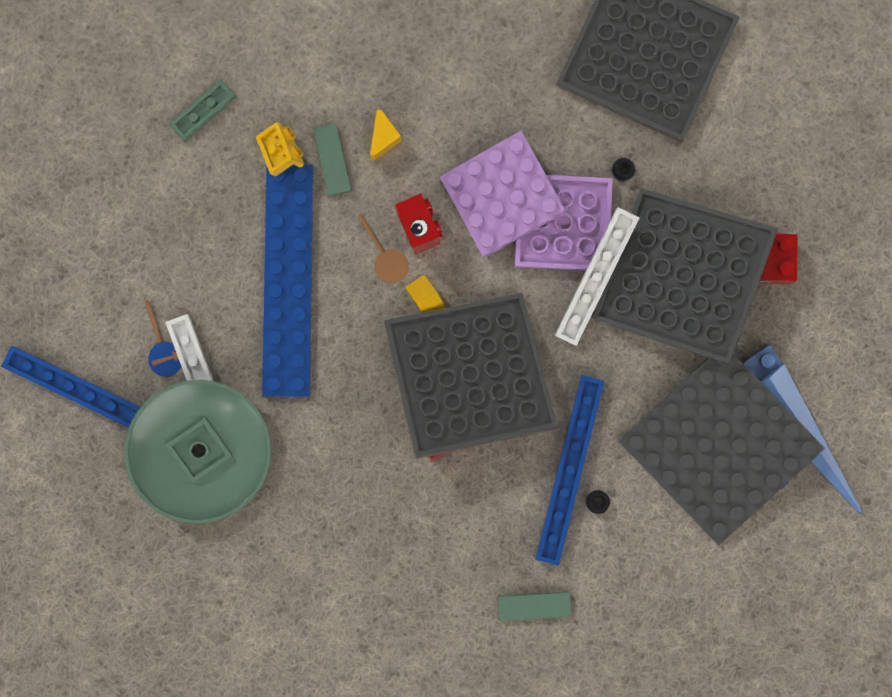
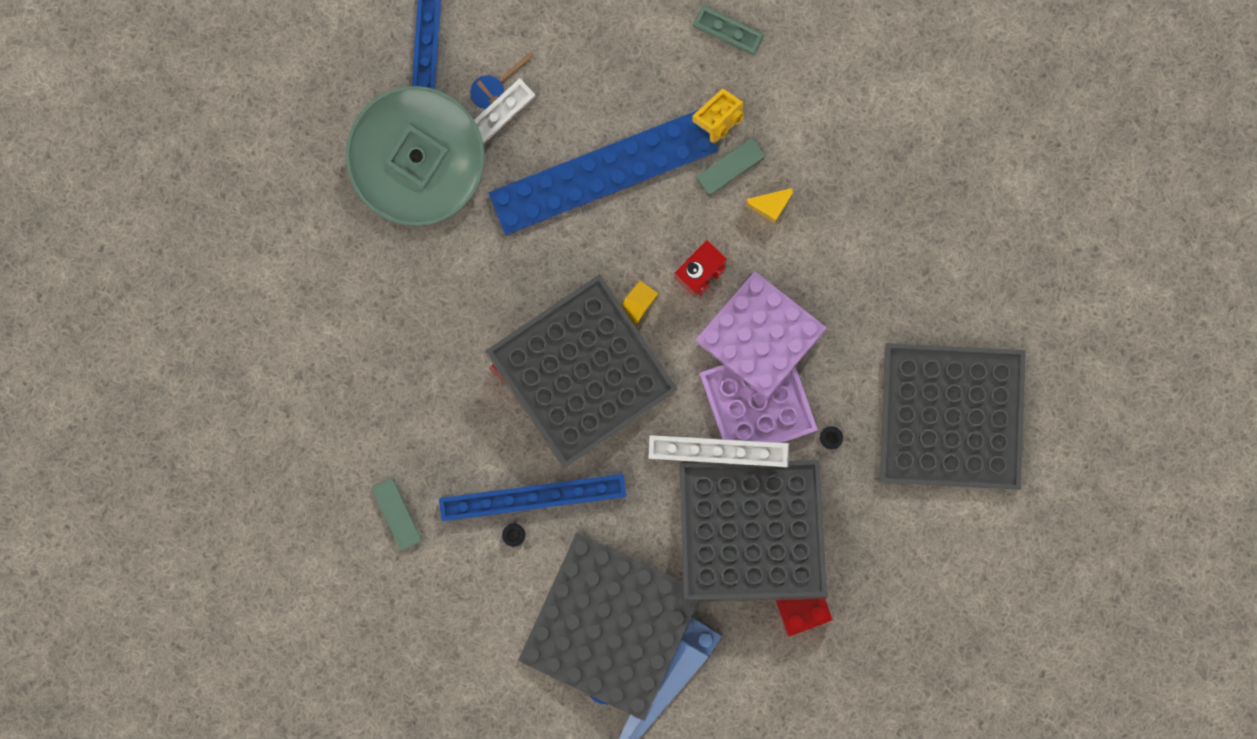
camera: 70 degrees right, 0 degrees up
(390, 263) = (656, 259): medium nougat piece -> none

